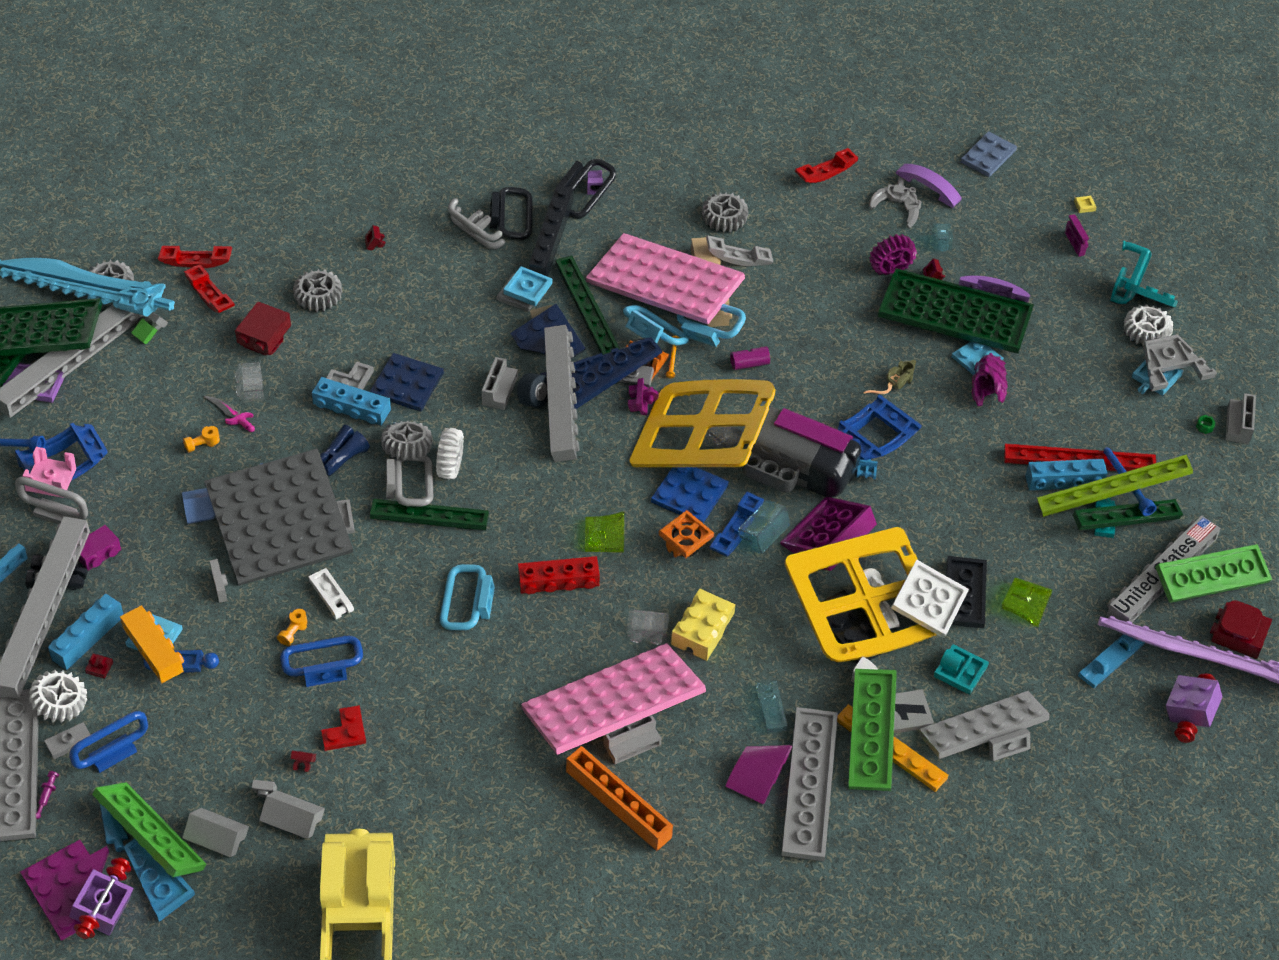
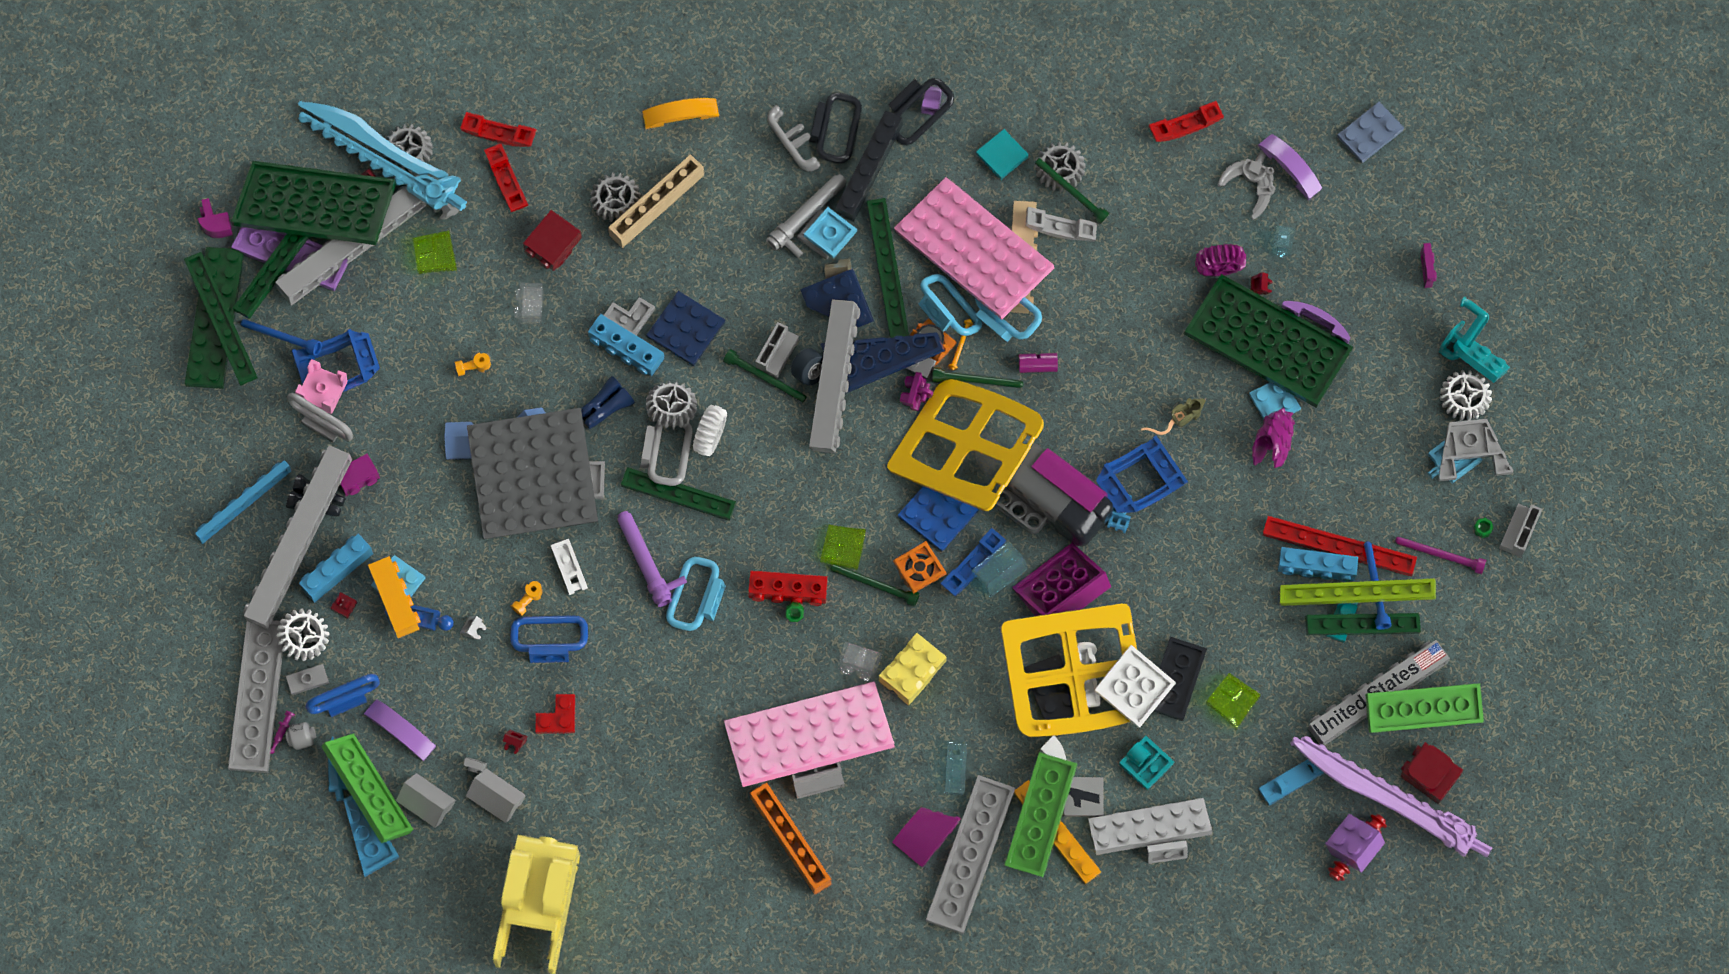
camera: 15 degrees right, 20 degrees up
(59, 880) = (289, 826): magenta wing -> none
(68, 792) = (300, 735): none -> light grey head
(102, 900) = (317, 852): medium lavender brick -> none
(144, 331) = (434, 220): bright green tile -> none
(149, 356) = (434, 253): none -> clear neon green plate
(178, 769) = (400, 729): none -> medium lavender slope
(219, 580) = (466, 533): light grey plate -> none
(229, 410) = (505, 332): piece -> none
(238, 663) = (471, 626): none -> tile
(357, 285) = (656, 201): none -> tan brick
(364, 218) = (680, 110): none -> light orange slope
(374, 238) = (684, 137): dark red tile -> none
(423, 593) = (656, 584): none -> medium lavender cylinder
(457, 397) = (732, 358): none -> dark green piece
(485, 293) = (786, 230): none -> light grey cylinder
(570, 595) = (794, 612): none -> green tile
(660, 381) = (940, 375): none -> dark green piece
(670, 211) = (1002, 154): none -> teal tile
(682, 565) = (908, 596): none -> dark green piece
(771, 241) = (1099, 213): none -> dark green piece
(1085, 204) = (1454, 219): light yellow tile -> none
(1212, 453) = (1476, 564): none -> magenta piece

